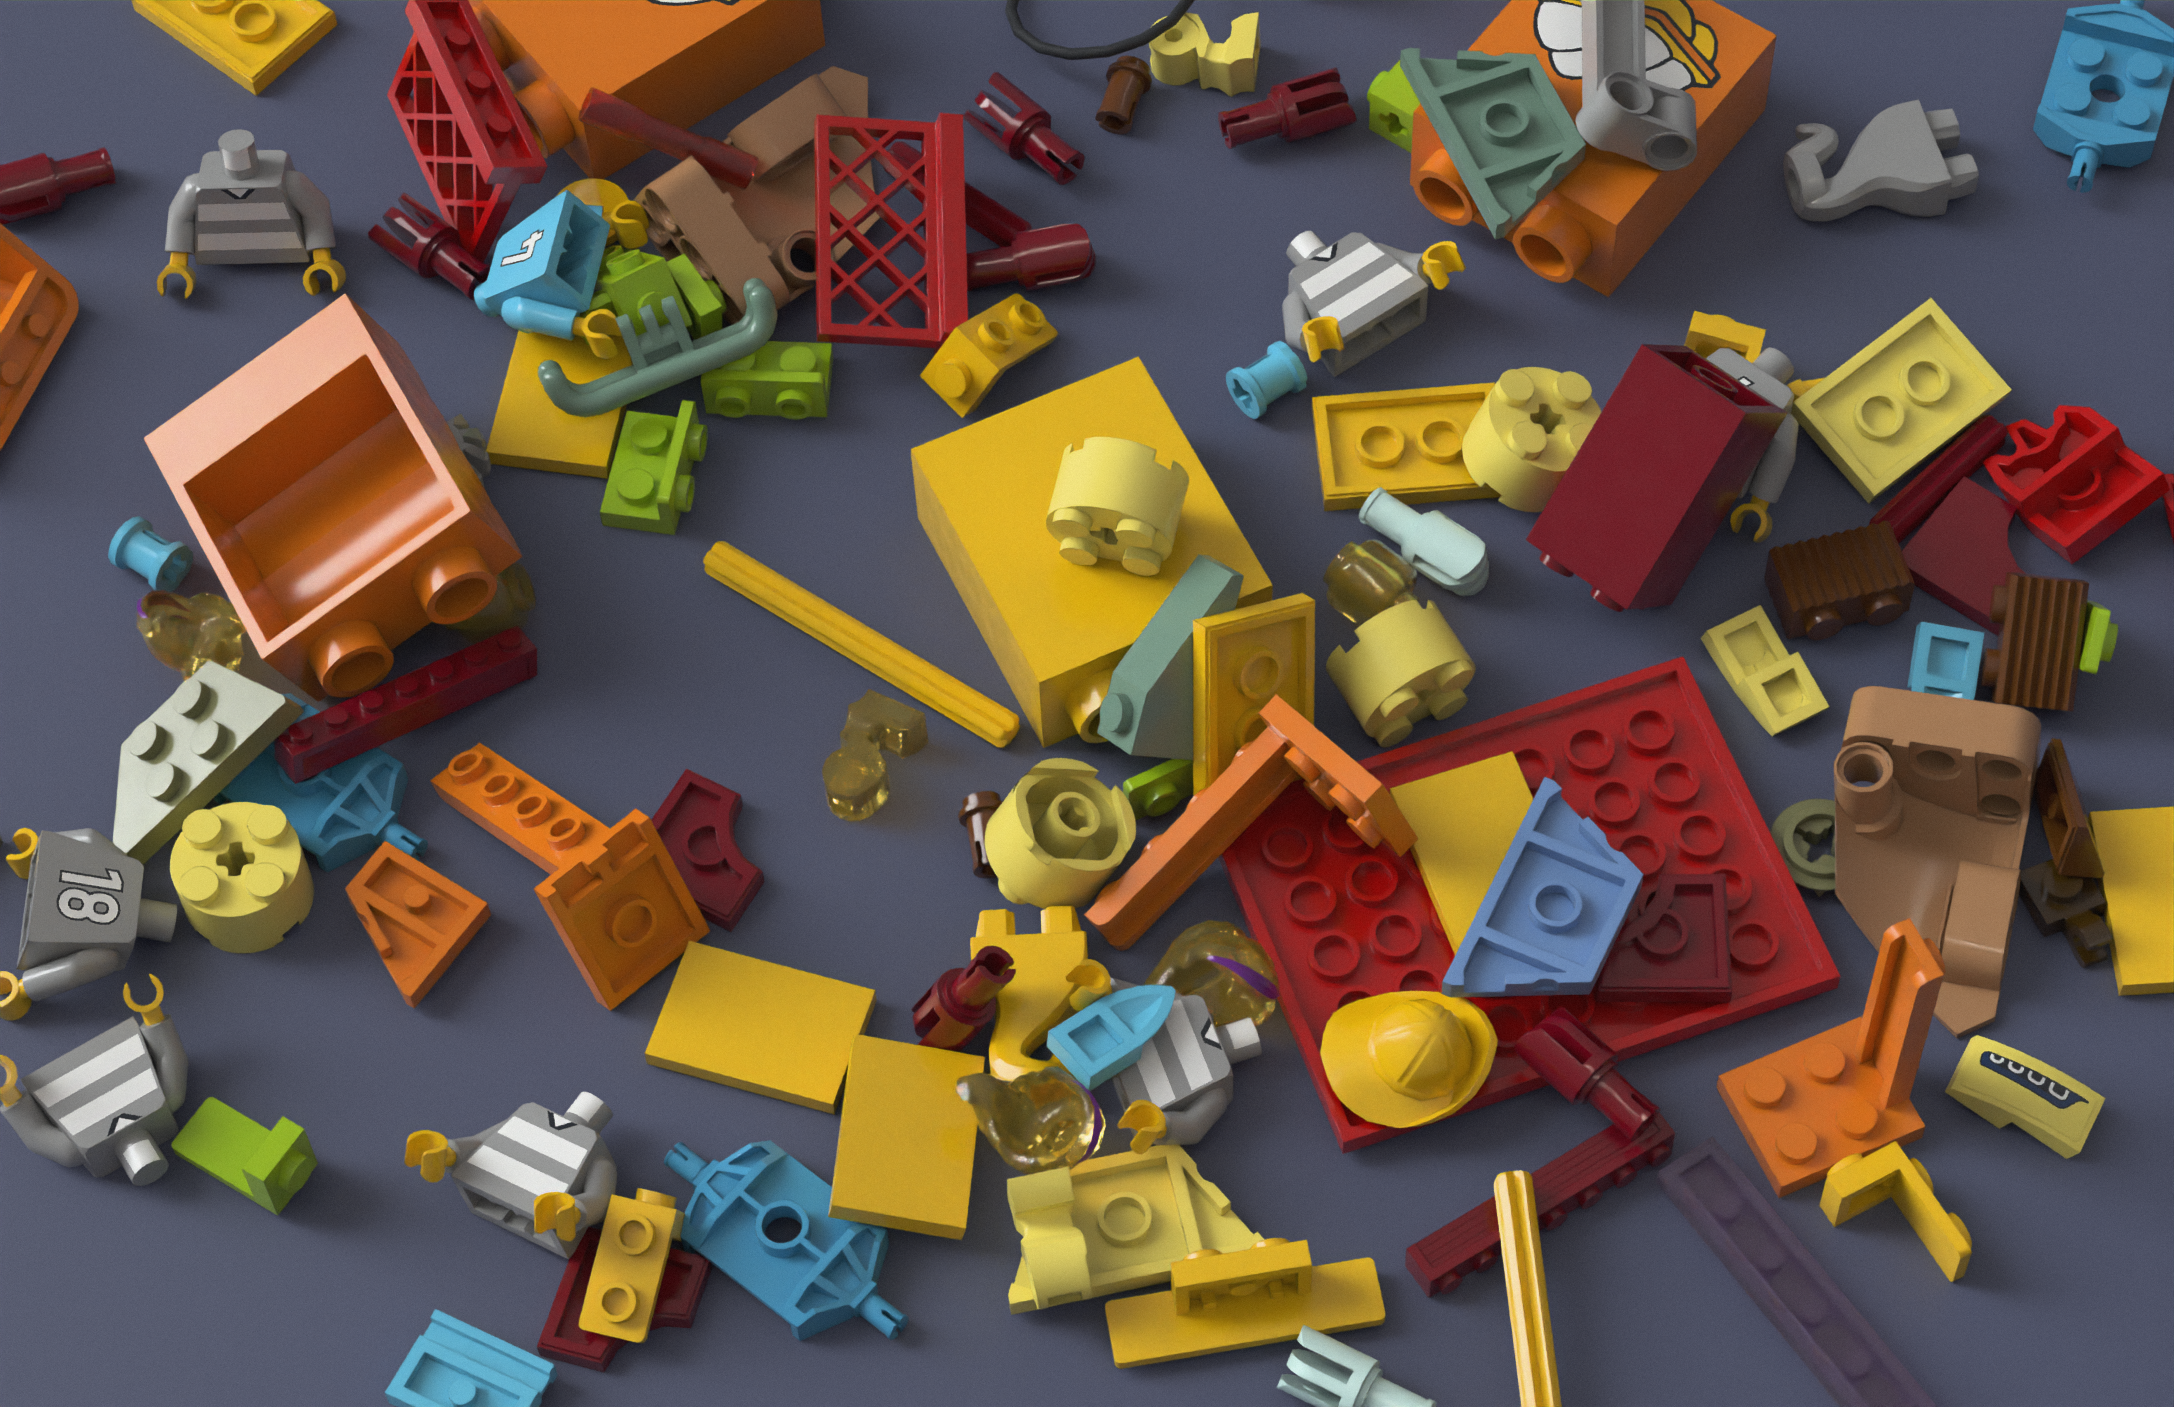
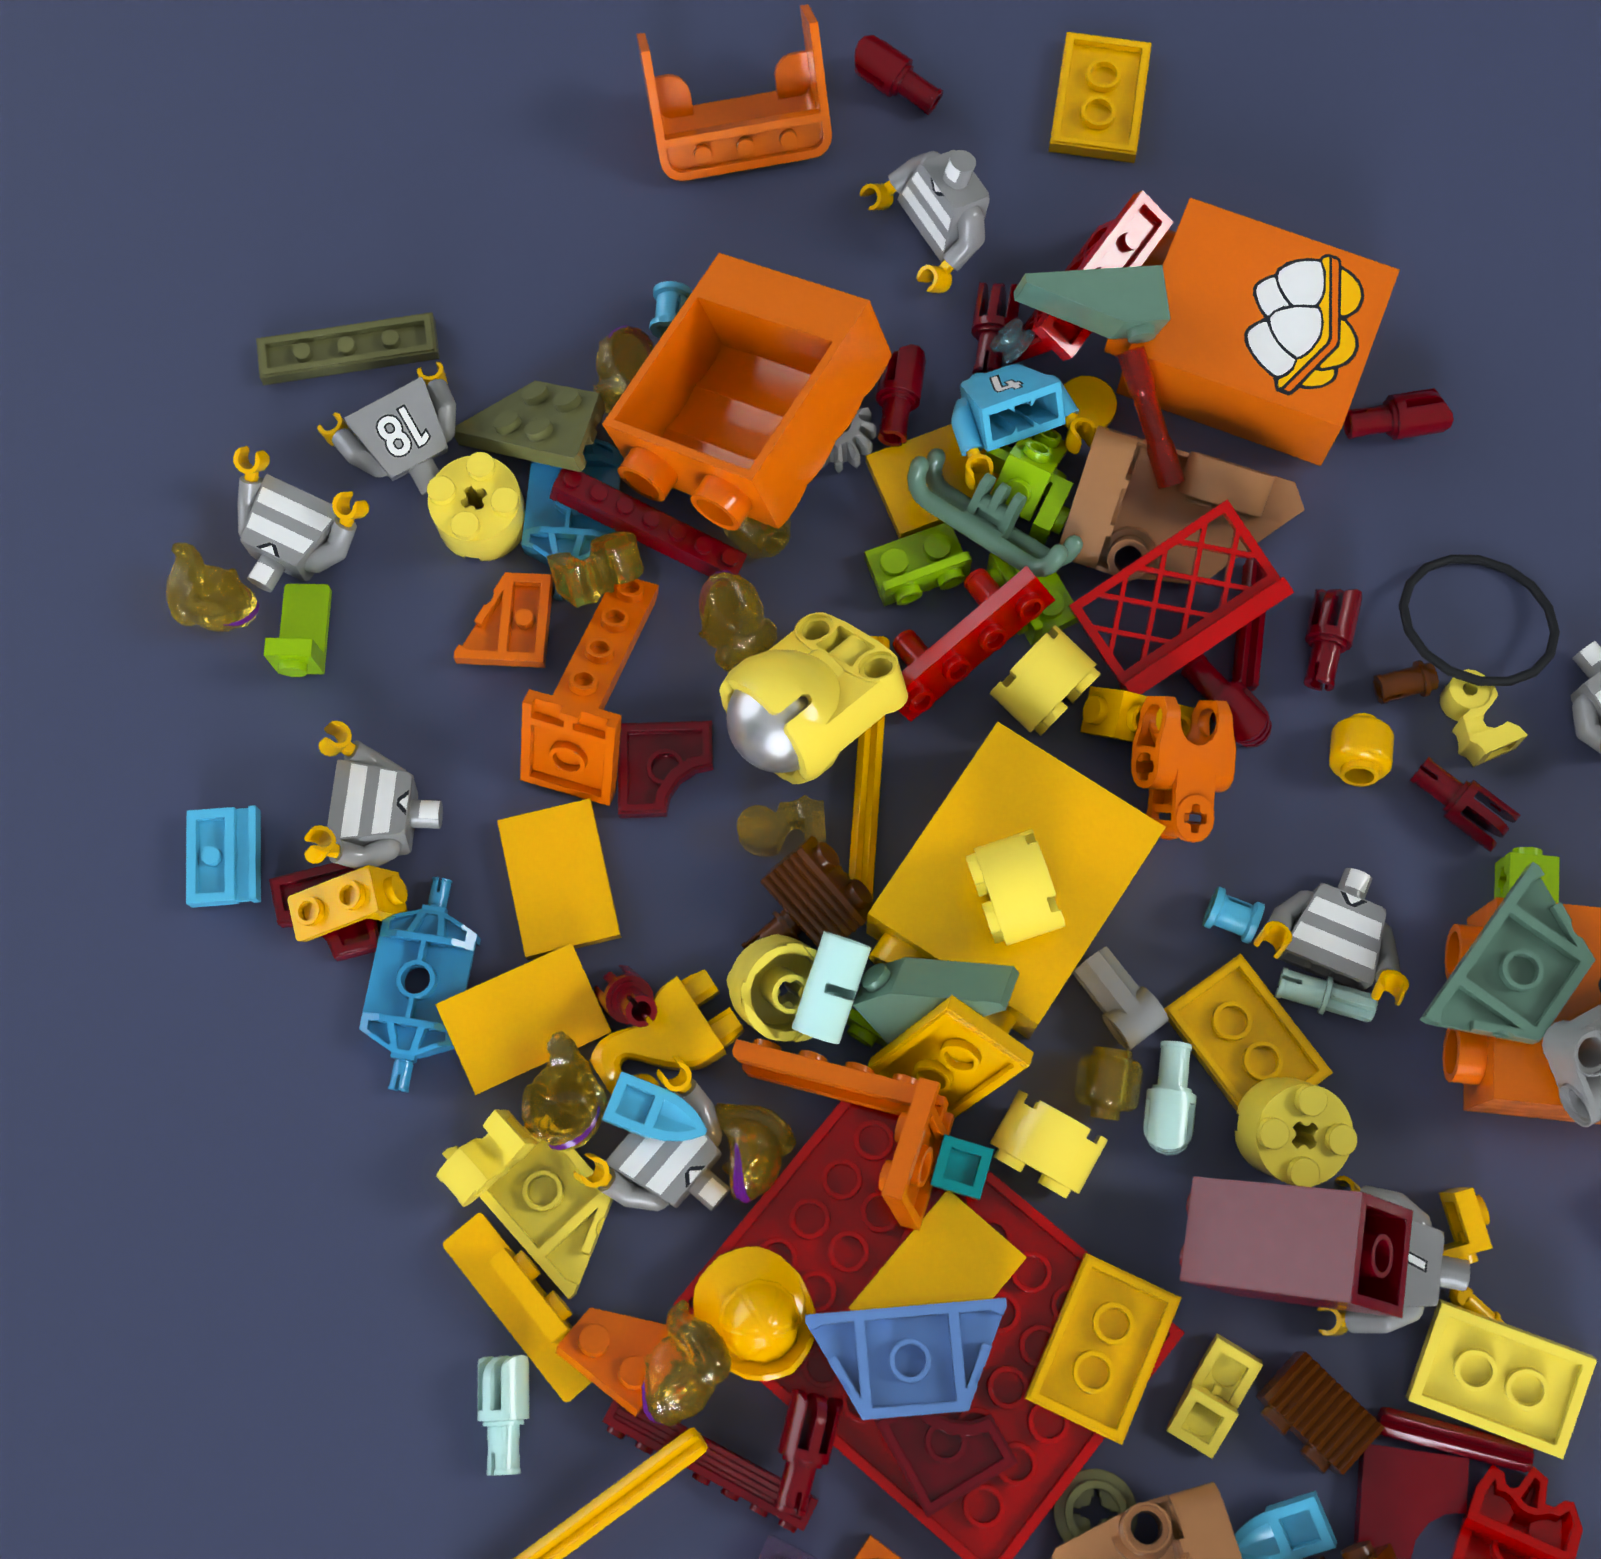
camera: 60 degrees right, 15 degrees up
(119, 1237) = (207, 593): none -> clear yellow hair
(428, 784) = (611, 561): none -> clear yellow leg
(447, 376) = (900, 393): none -> dark red arm
(470, 227) = (1012, 340): none -> clear light blue bush
(515, 89) = (1104, 301): none -> sand green slope
(582, 675) = (733, 619): none -> clear yellow hair
(744, 633) = (810, 697): none -> light yellow piece
(796, 475) = (985, 630): none -> red plate
(885, 403) = (1043, 679): none -> light yellow brick
(972, 747) = (818, 891): none -> reddish brown brick
(1072, 330) = (1181, 769): none -> orange piece
(1097, 762) = (831, 987): none -> light aqua pin
(1168, 168) = (1361, 749): none -> yellow head
(1303, 529) = (1127, 1009): none -> light grey piece
(1370, 1221) = (611, 1353): none -> orange wing
(1382, 749) = (961, 1167): none -> teal tile
(1408, 344) = (1326, 995): none -> light aqua axle
(1426, 1143) = (683, 1368): none -> clear yellow hair
(1653, 736) = (1103, 1348): none -> yellow tile

